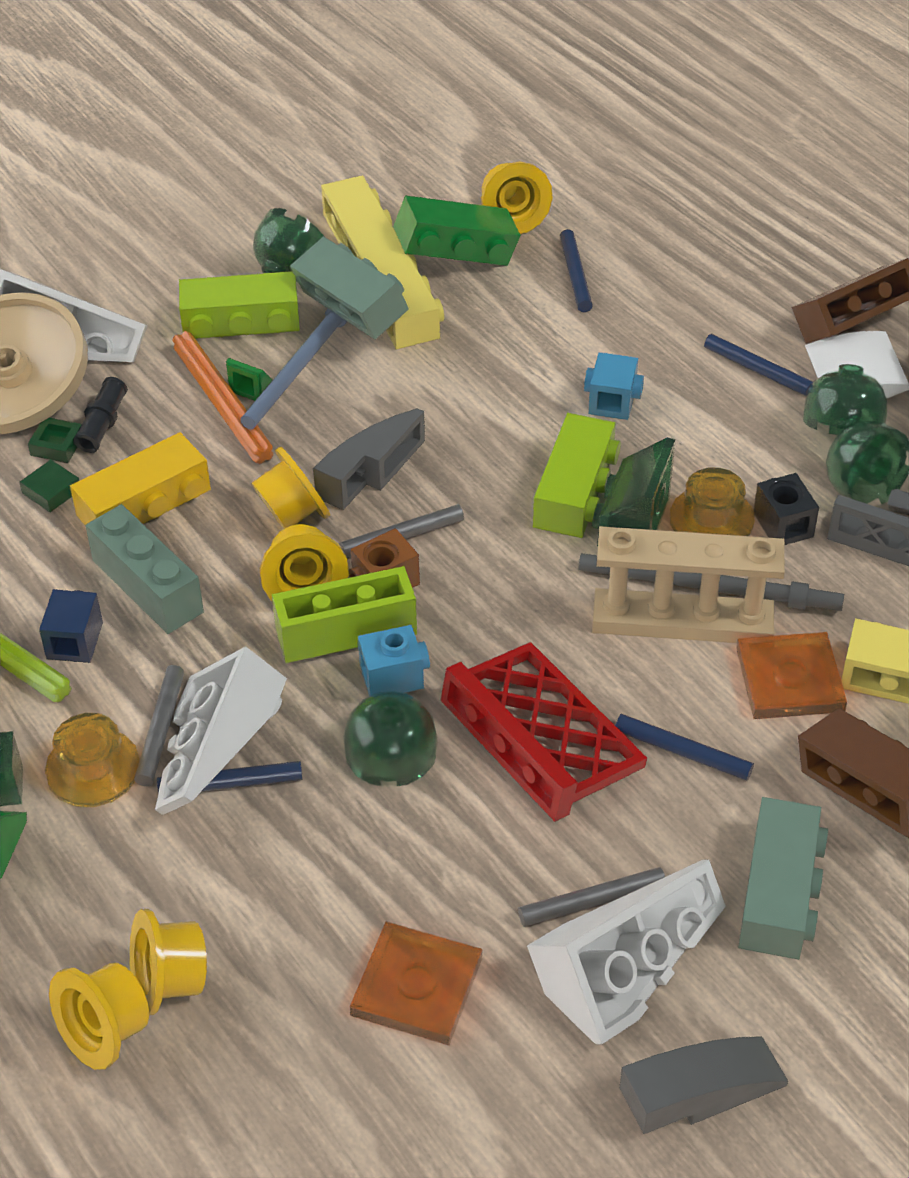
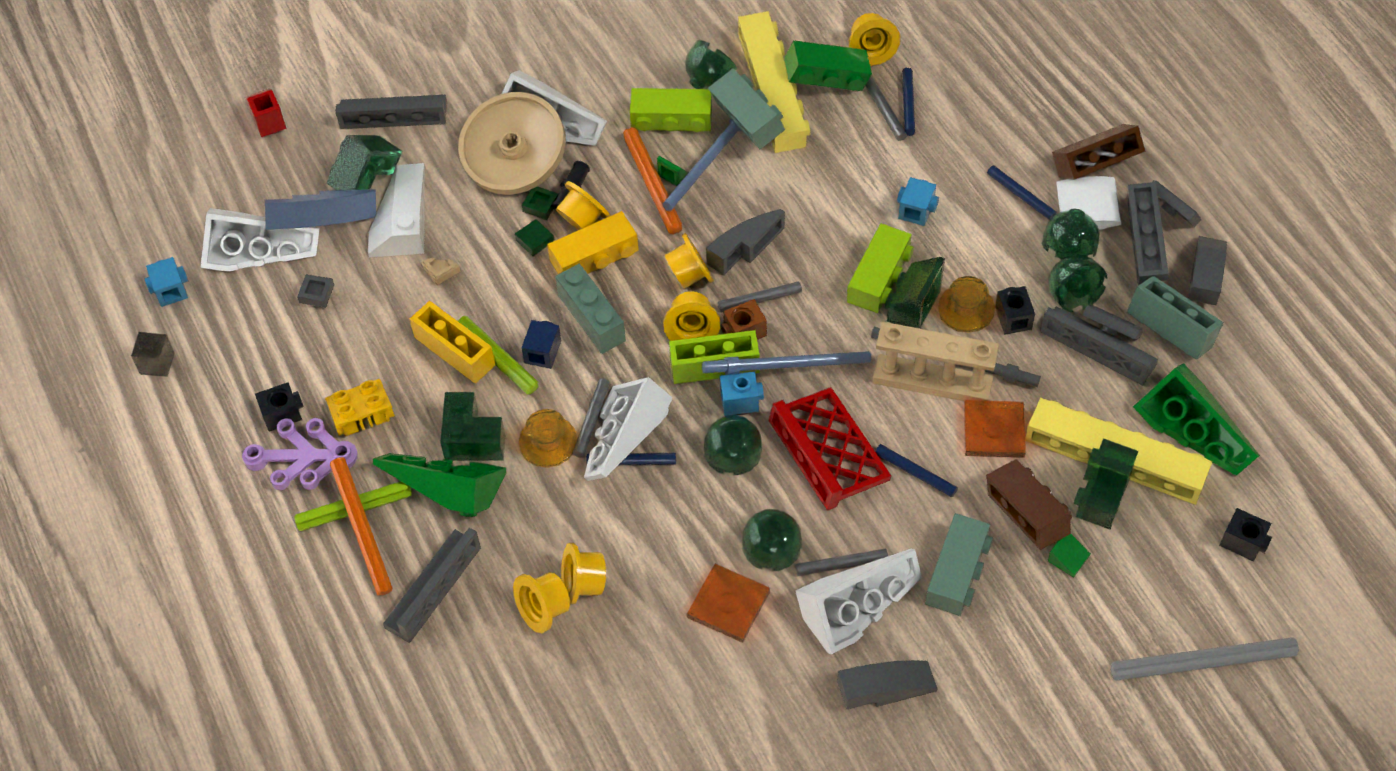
camera: 10 degrees right, 10 degrees up
(116, 431) = (580, 207): none -> yellow piece
(378, 617) = (734, 365): none -> sand blue bar
(473, 874) = (772, 540): none -> clear green cylinder
(546, 283) = (885, 109): none -> flat silver bar

